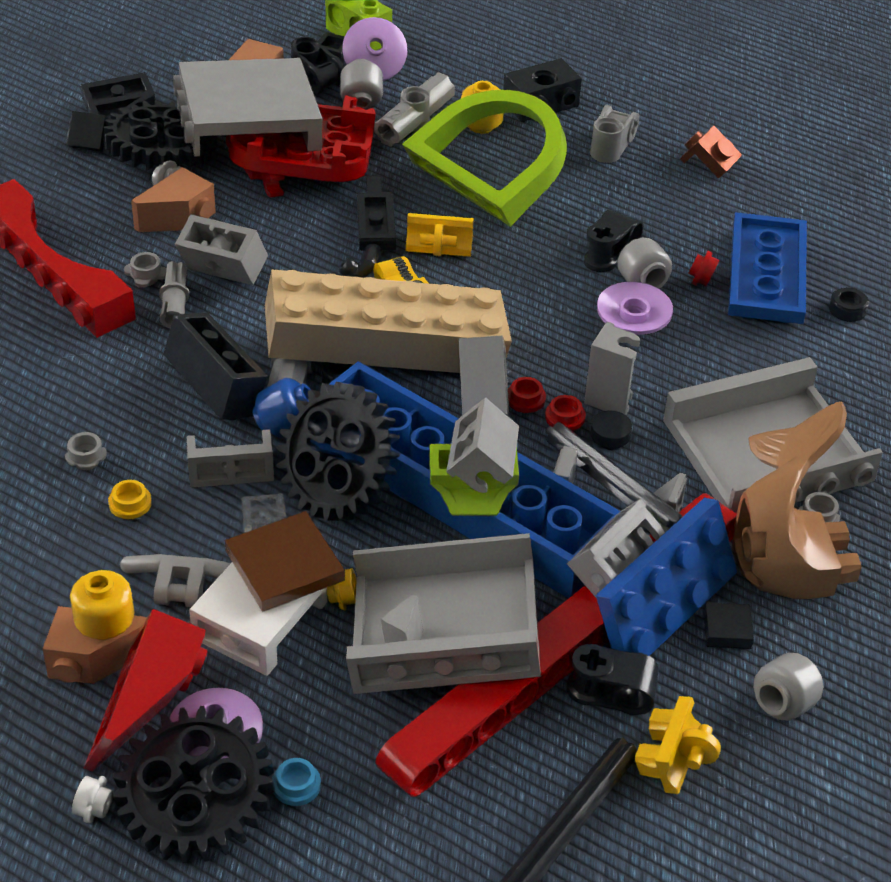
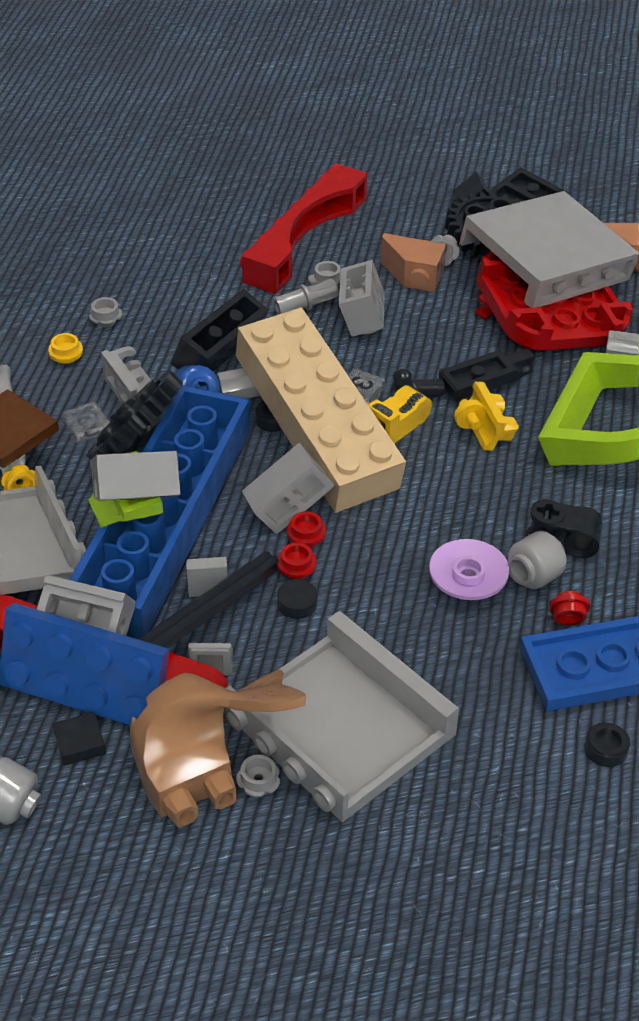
camera: 70 degrees right, 0 degrees up
(611, 369) = (348, 562): light grey hinge -> none

